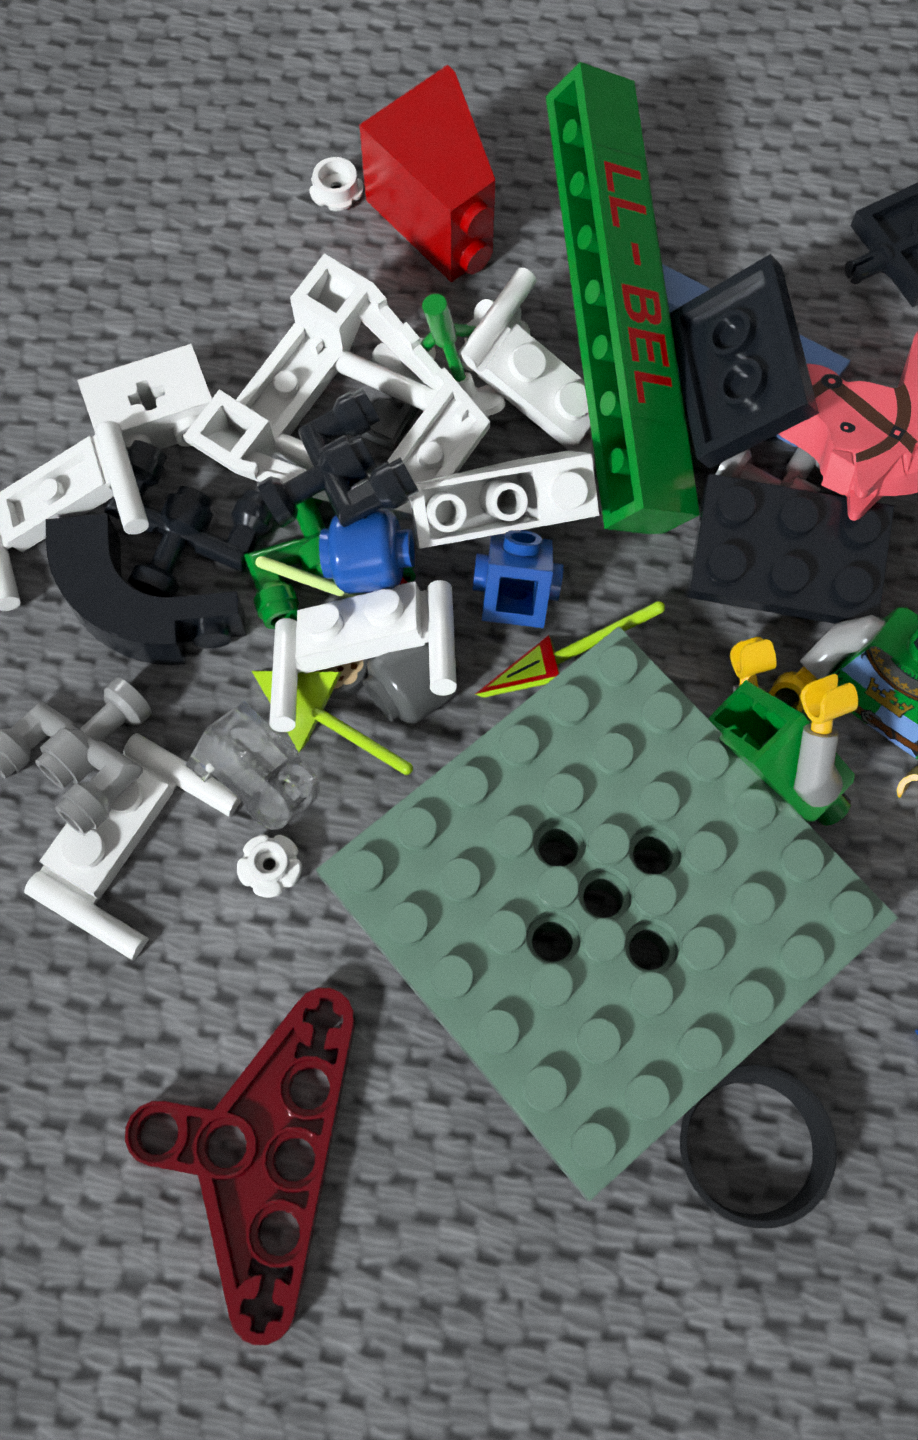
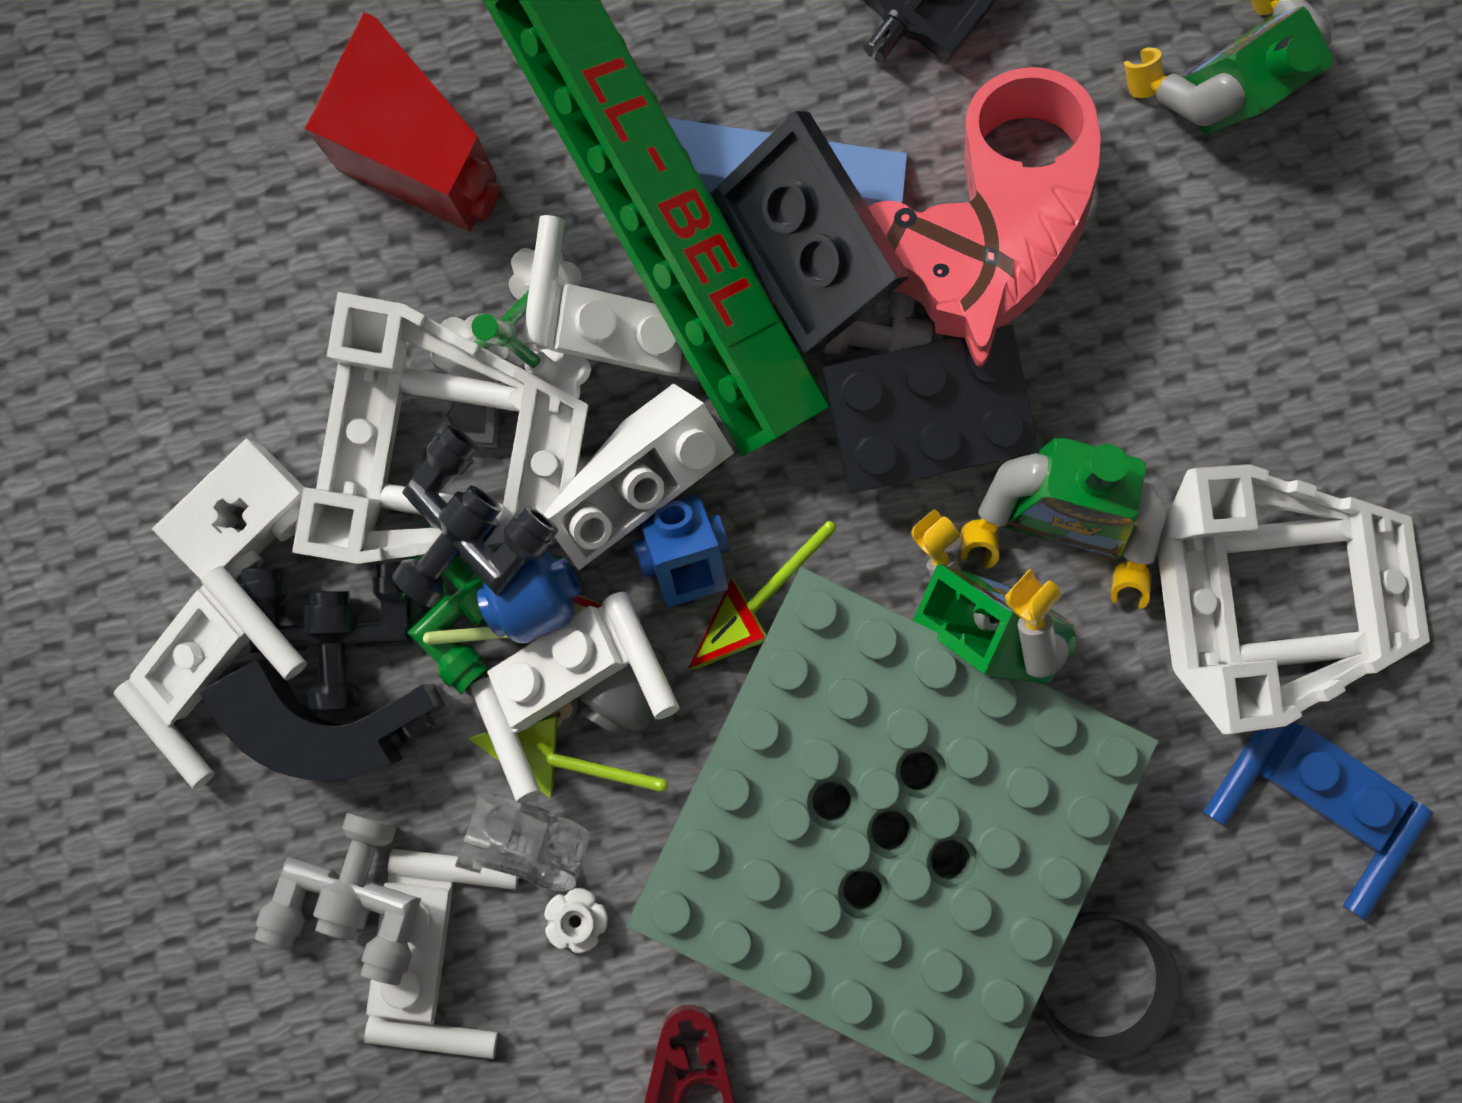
camera: 25 degrees left, 15 degrees up
(335, 172) = (288, 159): white plate -> none

